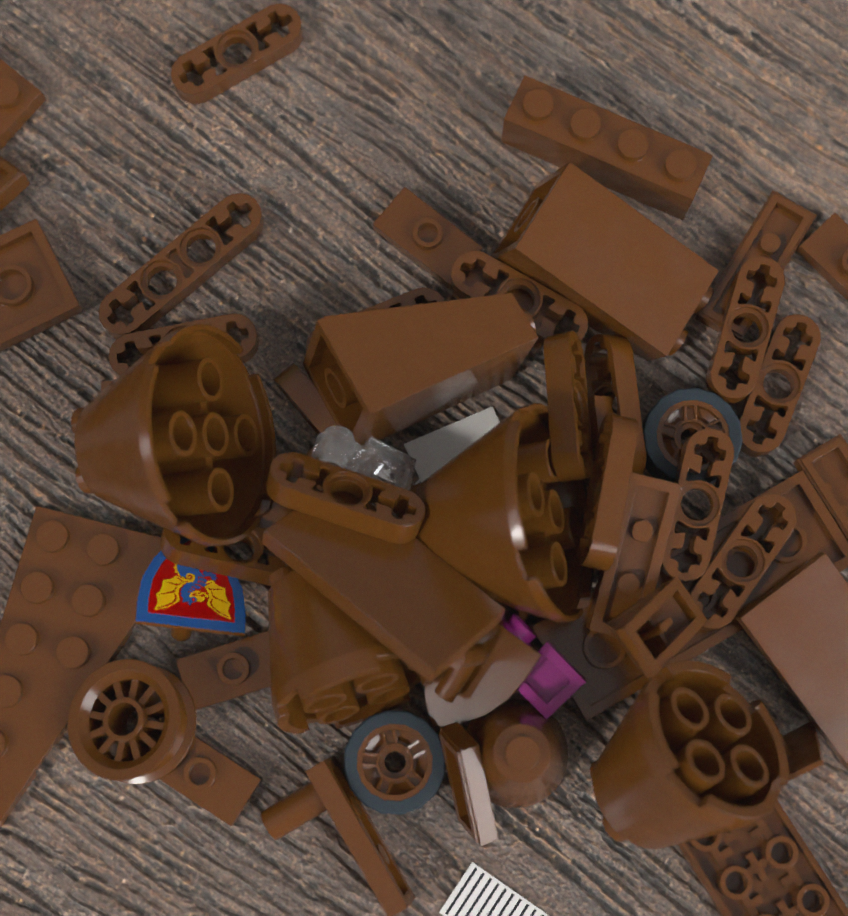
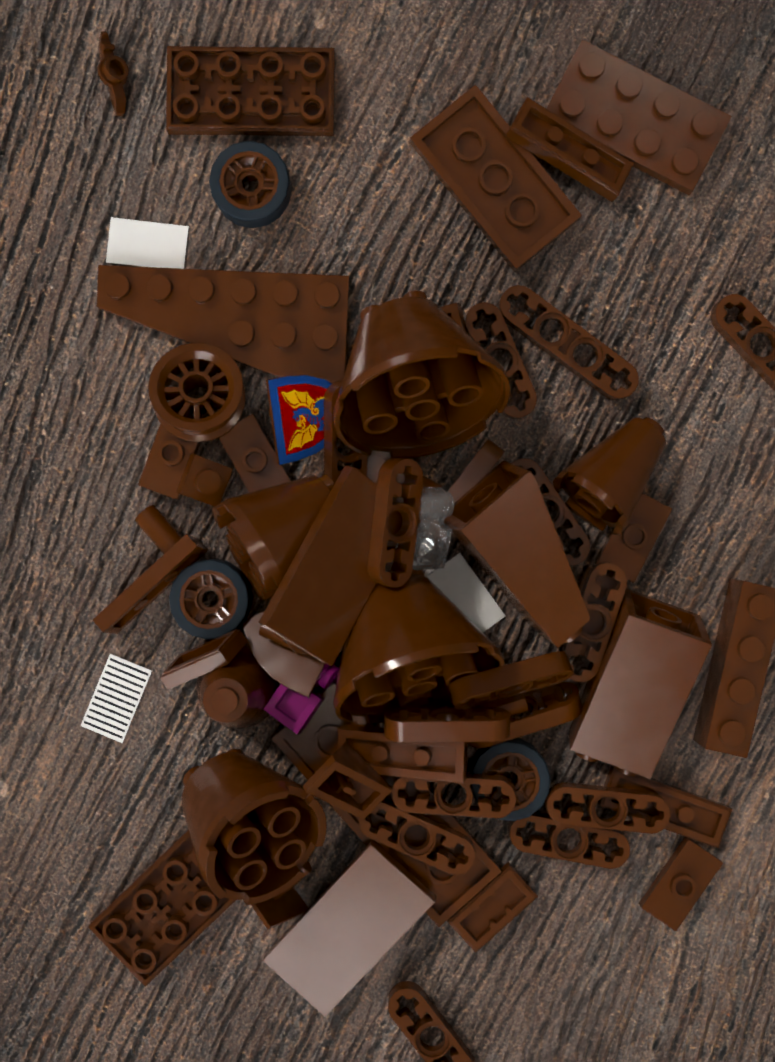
camera: 75 degrees right, 10 degrees up
(244, 738) = (204, 480): none -> reddish brown plate
(351, 244) = (613, 474): none -> reddish brown cone

